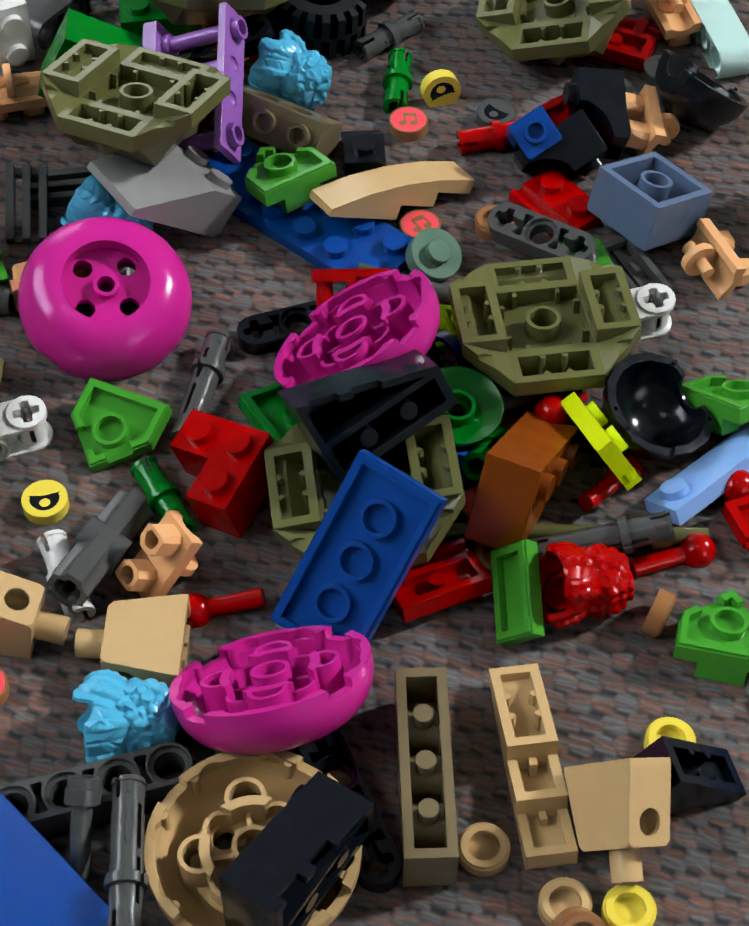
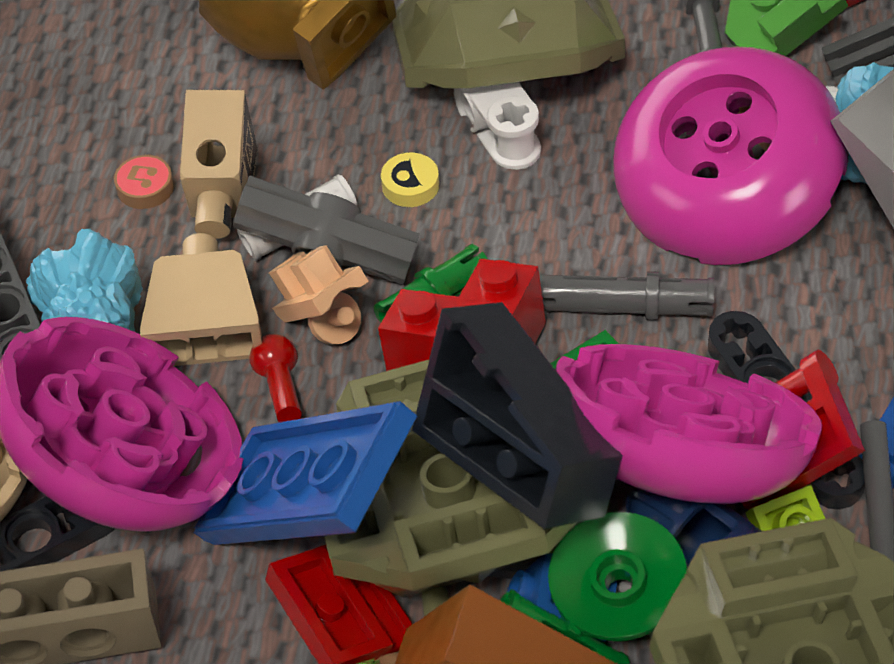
camera: 85 degrees right, 0 degrees up
(117, 424) = (540, 217): bright green plate -> none

